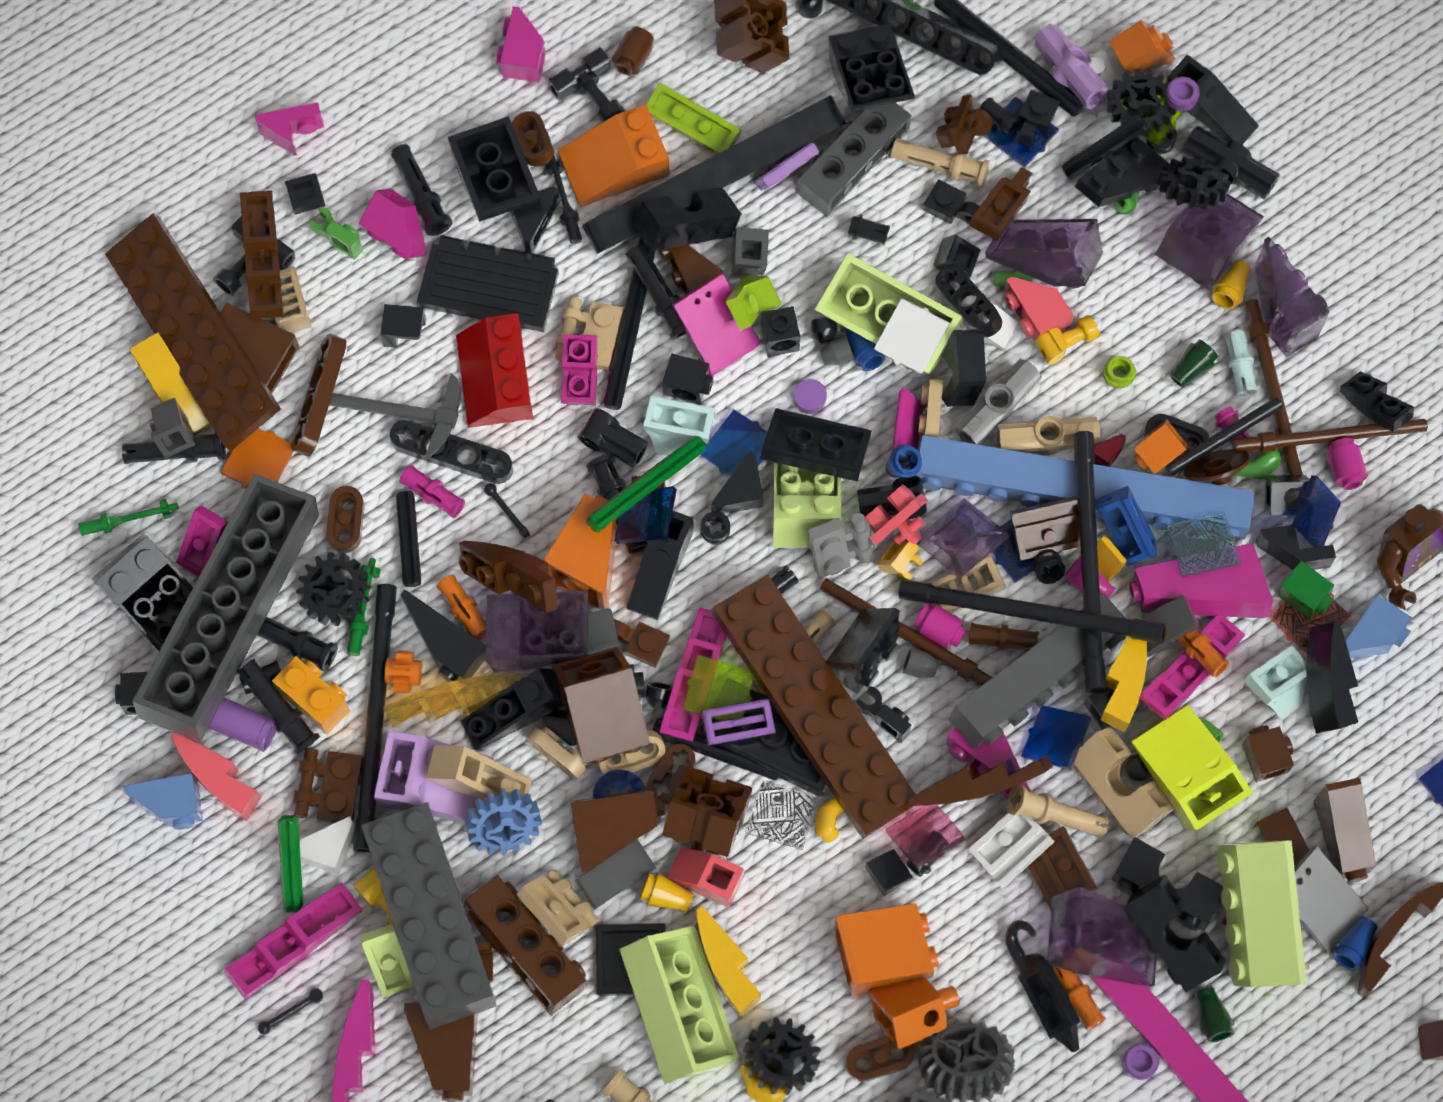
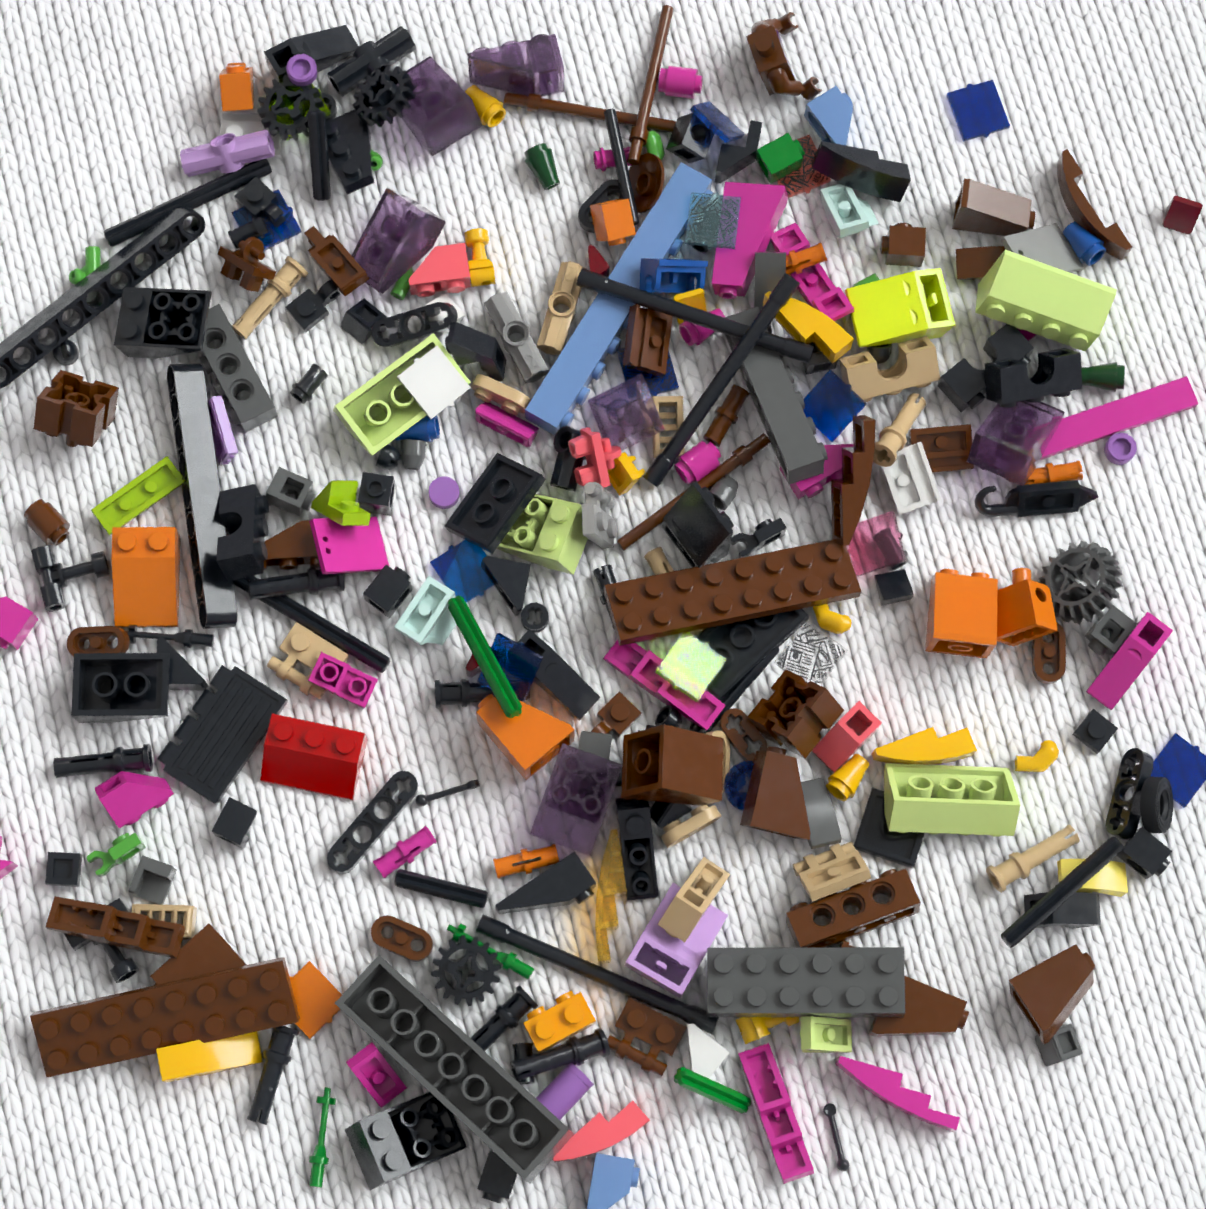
camera: 75 degrees left, 5 degrees up
(171, 428) = (257, 1066): dark grey brick -> none
(318, 394) = (271, 922): reddish brown beam -> none
(322, 273) = (152, 880): none -> dark grey panel
(403, 671) = (568, 933): orange gear -> none
(443, 418) = (339, 817): dark grey piece -> none
(503, 821) = (741, 891): medium blue gear -> none
(509, 569) = (514, 805): reddish brown slope -> none
(605, 434) = (411, 680): black piece -> none
(709, 727) = (711, 680): medium lavender tile -> none
(791, 1050) = (1009, 724): black gear -> none
(908, 458) = (545, 433): blue cone -> none
(1051, 559) = (679, 354): black bush -> none
(1119, 363) = (528, 221): lime plate -> none
(1241, 362) = (555, 127): light aqua axle -> none
(1371, 399) = (629, 40): black slope -> none

